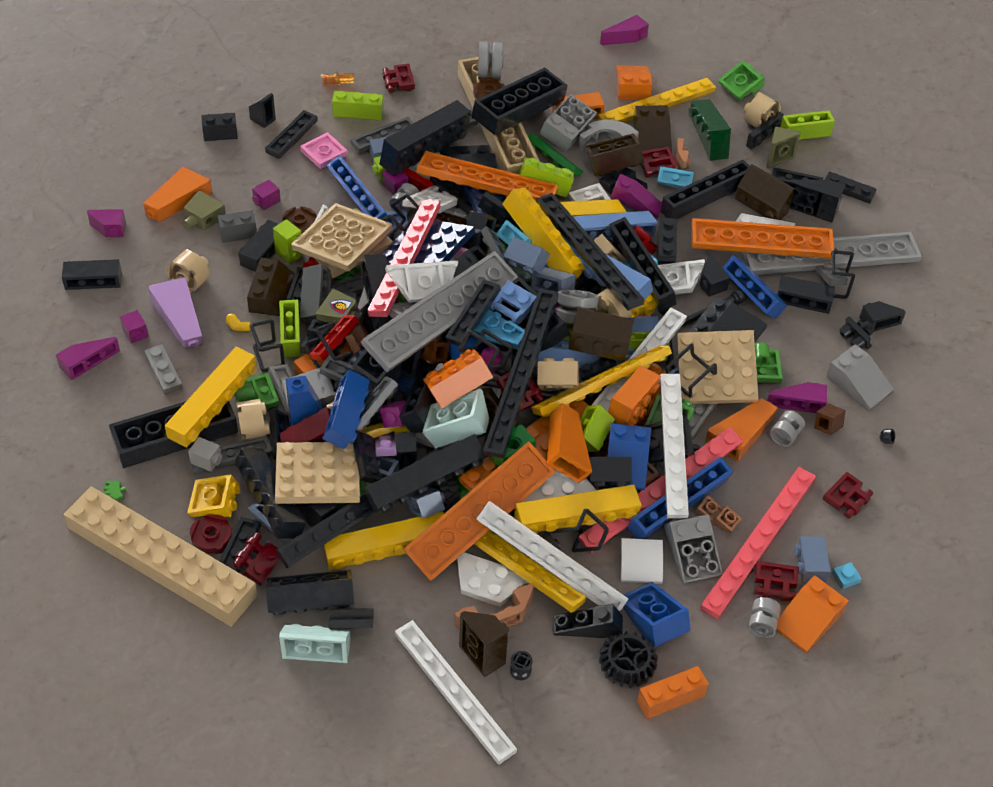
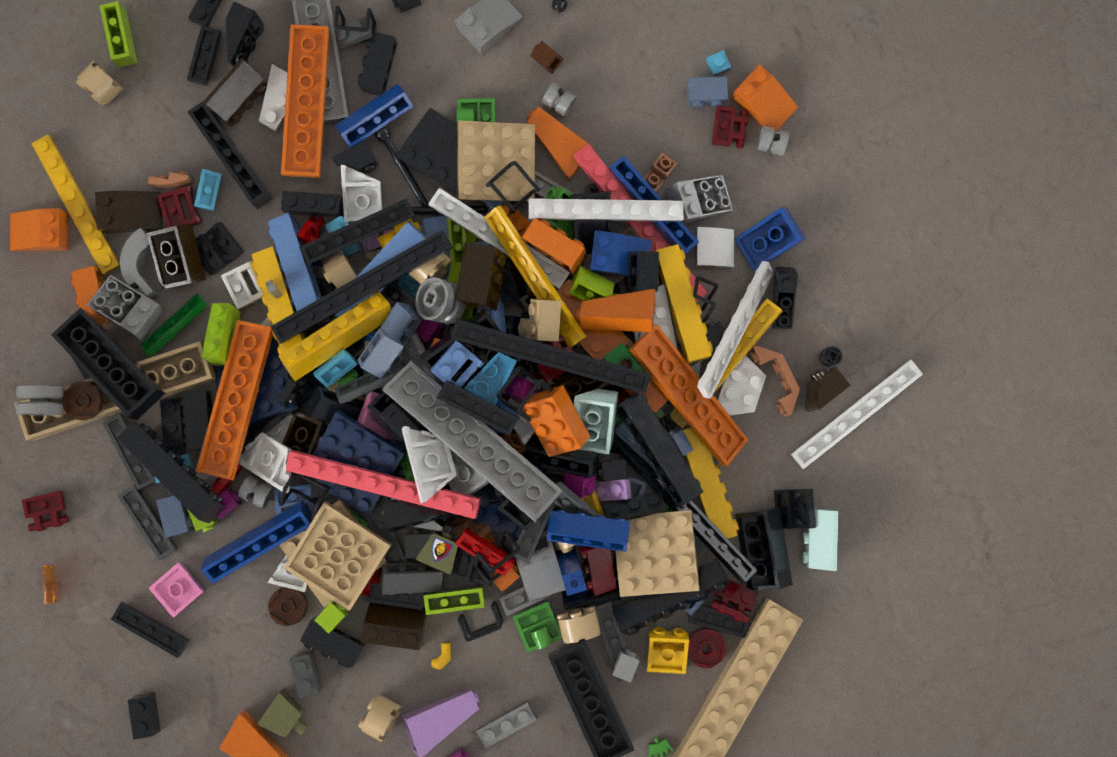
camera: 90 degrees left, 35 degrees up
(211, 397) = (566, 668): yellow brick -> none
(263, 110) = (115, 668): black slope -> none
(266, 195) = (253, 648): magenta brick -> none
(357, 105) = (100, 556): lime brick -> none
(586, 203) = (273, 289): none -> light grey tile
(624, 666) = (821, 270): black gear -> none
(635, 196) = (243, 234): magenta slope -> none
(672, 692) = (850, 225): orange brick -> none
(711, 128) = (124, 144): dark green wedge -> none
(742, 81) = (39, 102): bright green plate -> none
(757, 543) = (684, 138): coral plate -> none
(764, 130) = (125, 82): black plate -> none
(782, 146) = (156, 68): olive slope -> none
(801, 397) = (516, 76): magenta slope -> none
(843, 490) = (627, 54): dark red plate -> none
(859, 330) = (438, 13): black hips -> none

